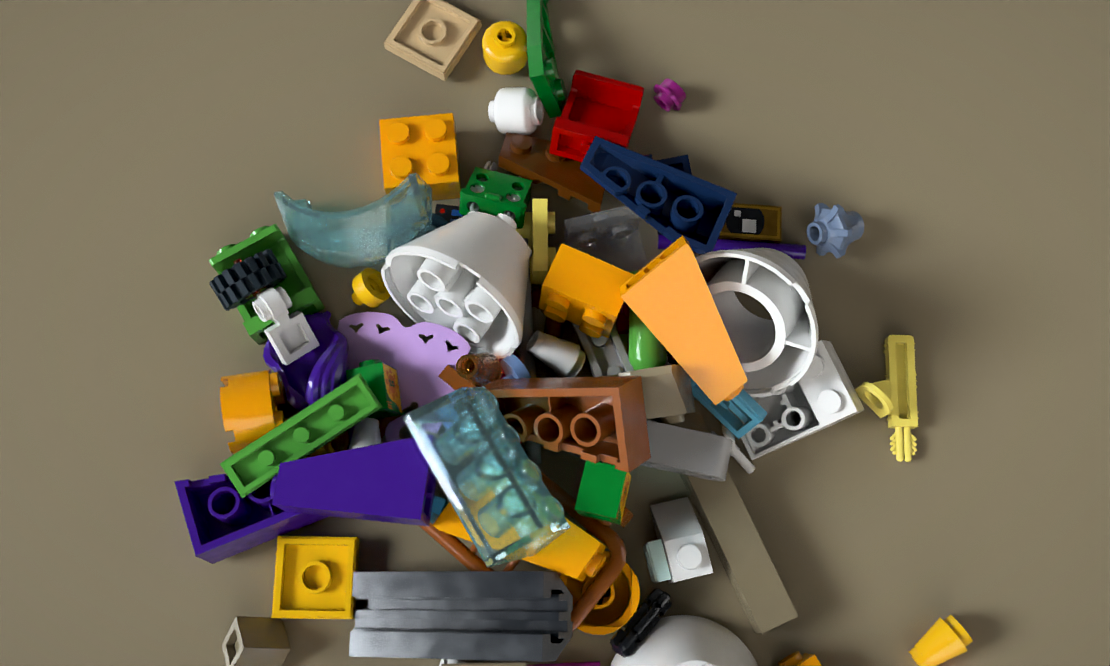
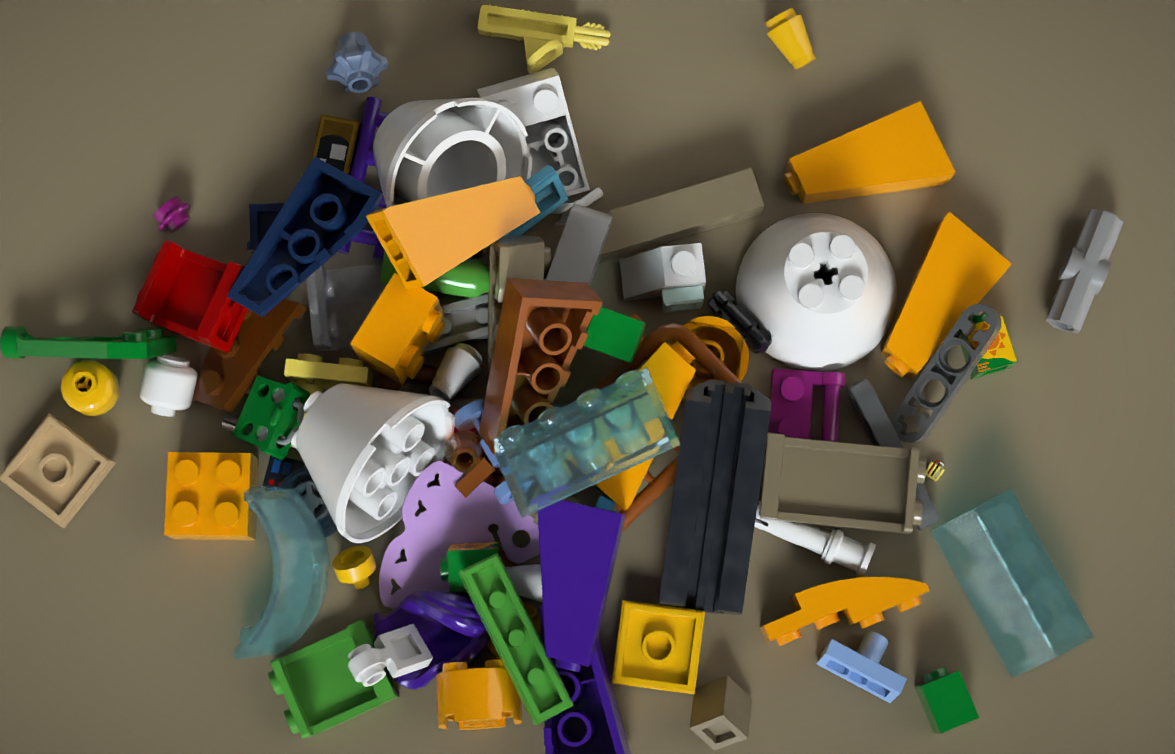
camera: 80 degrees left, 5 degrees up
(247, 279) = (333, 692): black wheel -> none

